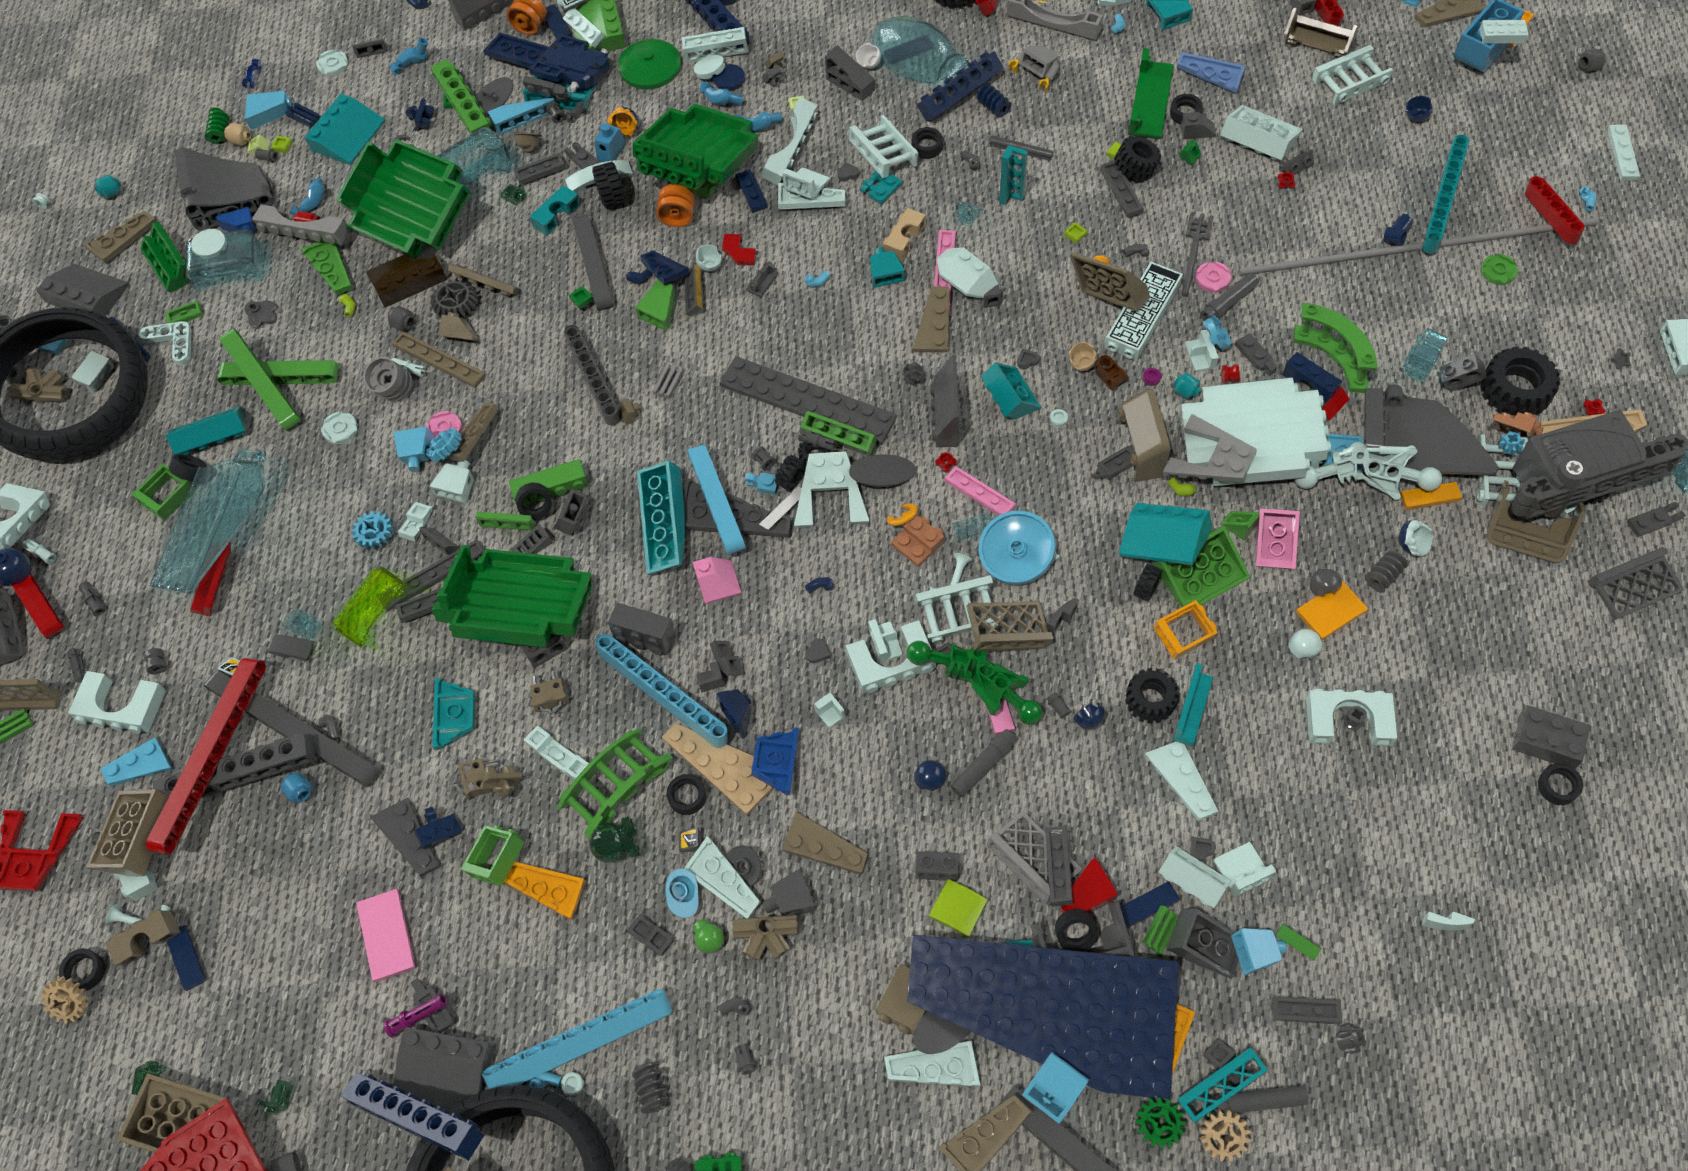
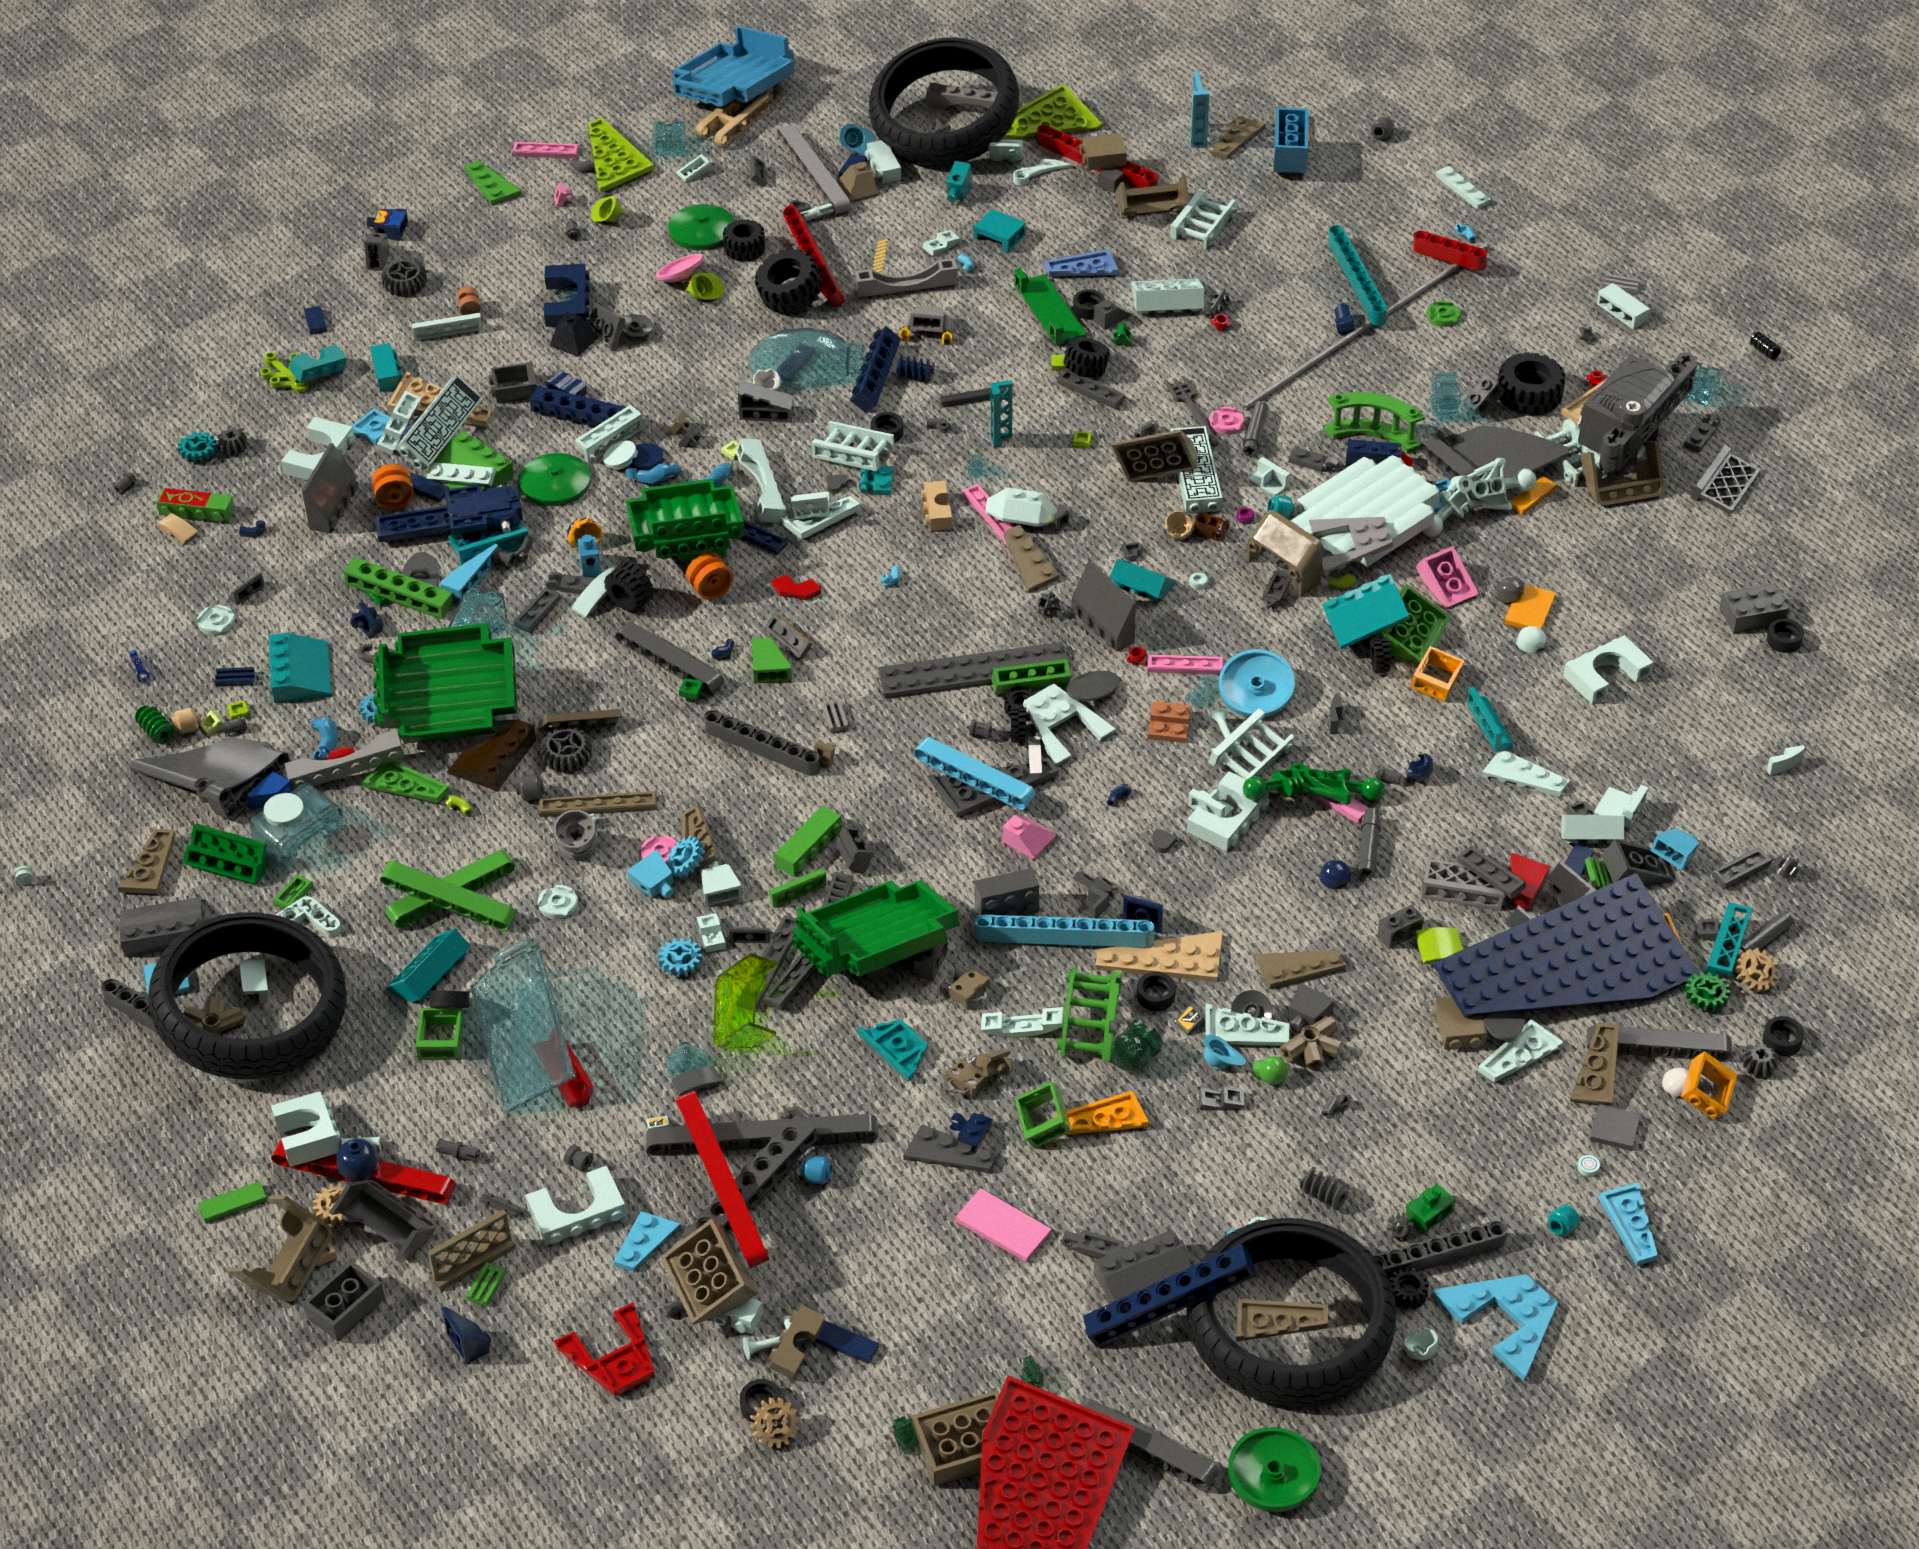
camera: 40 degrees left, 15 degrees down
(107, 186) = (89, 828): teal head -> none
(262, 313) = (375, 853): dark grey plate -> none
(266, 107) = (190, 685): medium azure slope -> none
(408, 1018) = (1088, 1262): magenta pin -> none
(410, 56) = (302, 575): dark azure arm -> none
(456, 327) = (596, 767): dark tan slope -> none
(513, 194) = (532, 642): clear green bracket -> none
(526, 140) = (507, 588): dark tan piece -> none
(533, 488) = (802, 855): black tyre -> none
(546, 88) = (486, 536): dark grey hinge -> none
(561, 201) = (587, 636): teal arch -> none
(578, 1040) = (1240, 1190): medium azure beam -> none
(662, 516) = (940, 810): teal slope -> none
(663, 268) = (744, 629): dark blue wing -> none
(708, 258) = (777, 604): light aqua hair -> none
(746, 1065) = (1380, 1133): dark grey pin -> none
(762, 279) = (842, 598): dark grey hinge -> none
(764, 483) = (998, 746): medium azure plate -> none
(775, 759) = (1208, 926): blue wing -> none
(817, 440) = (1020, 688): dark grey pin -> none
(829, 710) = (1215, 872): light aqua panel -> none
(885, 268) = (946, 539): teal torso -> none
(906, 516) = (1146, 704): light orange head -> none
(1008, 640) = (1312, 746): dark tan fence -> none
(1055, 1087) = (1619, 1006): medium azure slope -> none
(1069, 918) = (1533, 894): black tyre -> none
(1151, 710) = (1453, 729): black tyre -> none
(1218, 334) = (1271, 455): medium azure plate -> none
(1230, 373) = (1306, 482): red wheel -> none
(1241, 523) = (1414, 578): bright green slope -> none
(1298, 942) = (1700, 826): bright green slope -> none
(1357, 713) = (1611, 665): dark grey bush -> none
(1386, 571) = (1547, 559): dark grey piece -> none
(1415, 538) = (1548, 526): light aqua hair -> none
(1419, 108) = (1280, 221): dark blue hair -> none
(1503, 31) = (1307, 130): light aqua piece -> none
(1511, 443) = (1562, 426): medium azure gear -> none
(1525, 424) = (1563, 409): nougat plate -> none

